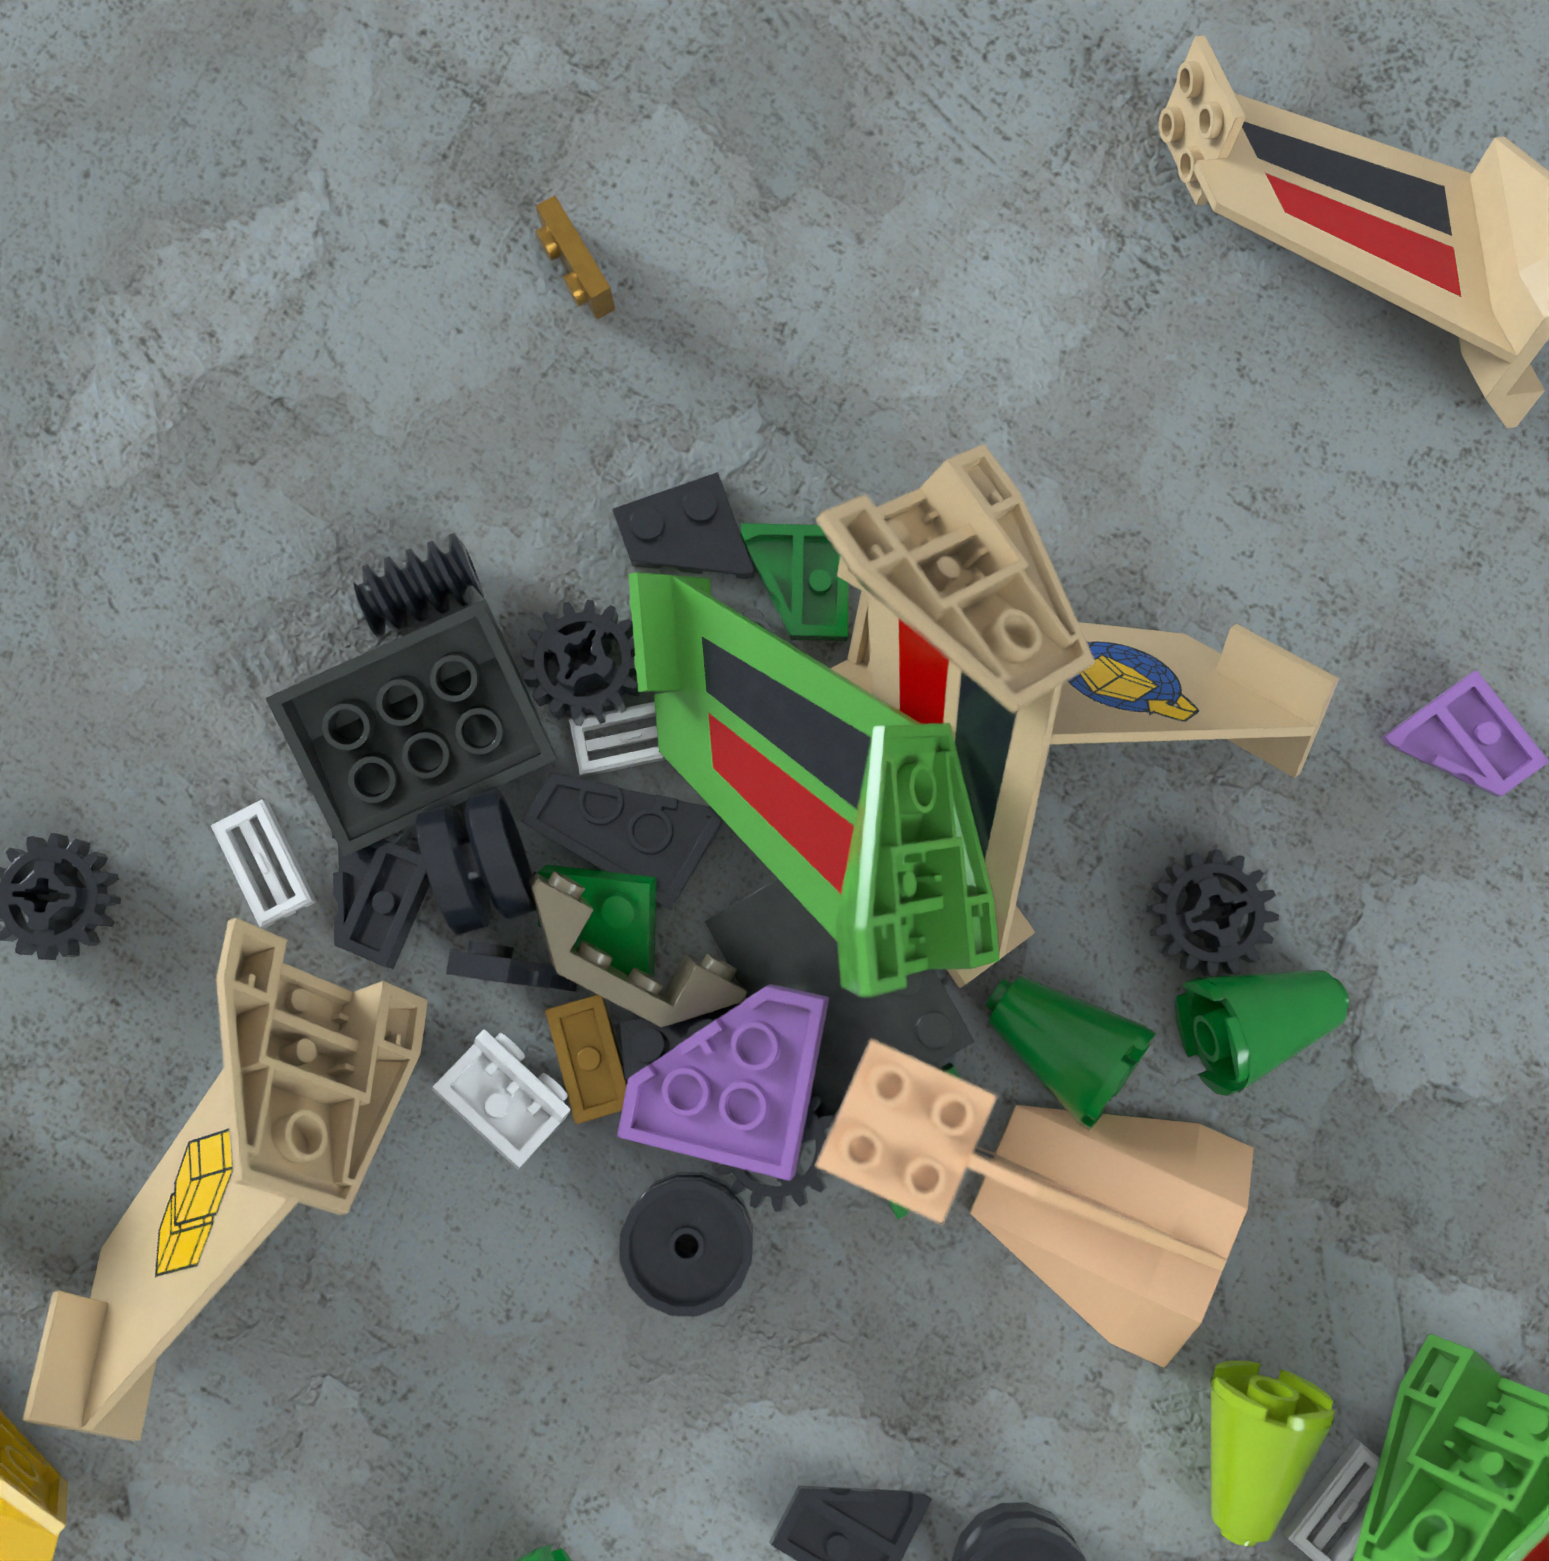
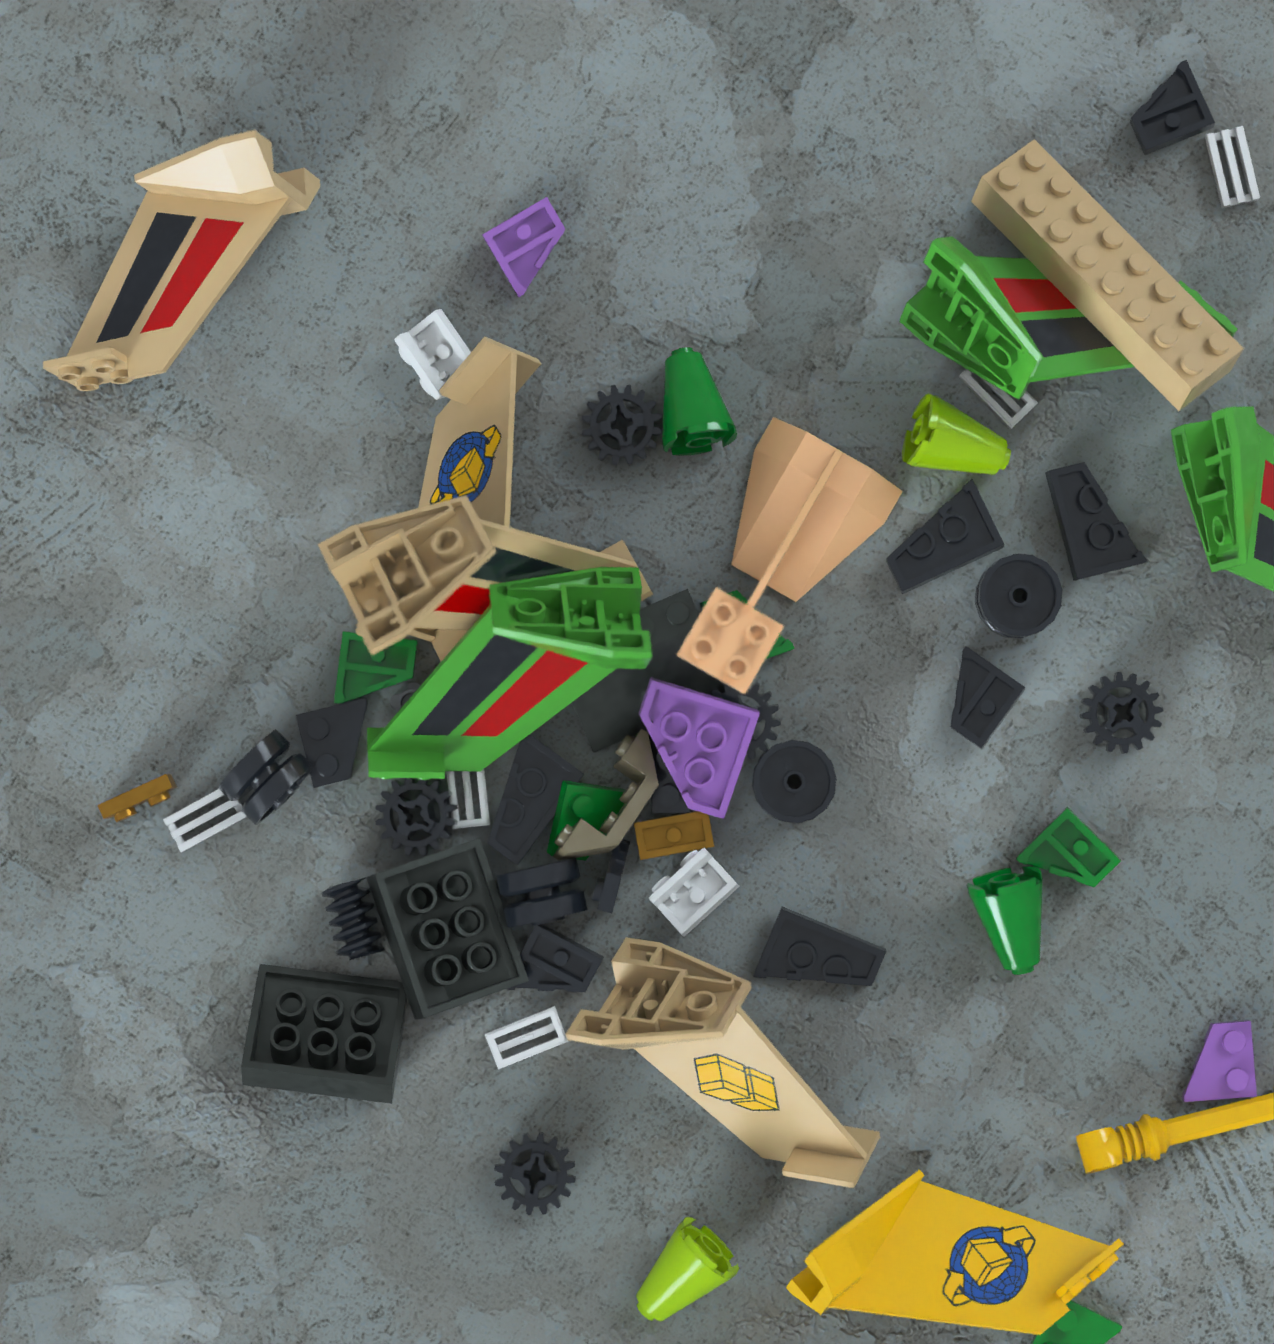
camera: 80 degrees left, 5 degrees up
(245, 560) = (324, 1034): none -> pearl dark grey slope
(427, 1299) = (816, 951): none -> black wing
(529, 325) = (177, 833): none -> white tile
(618, 429) = (270, 781): none -> black wheel
(1068, 1044) = (695, 527): green cone -> none
(1097, 1454) = (947, 541): none -> black wing
(1289, 611) = (433, 351): none -> white bracket

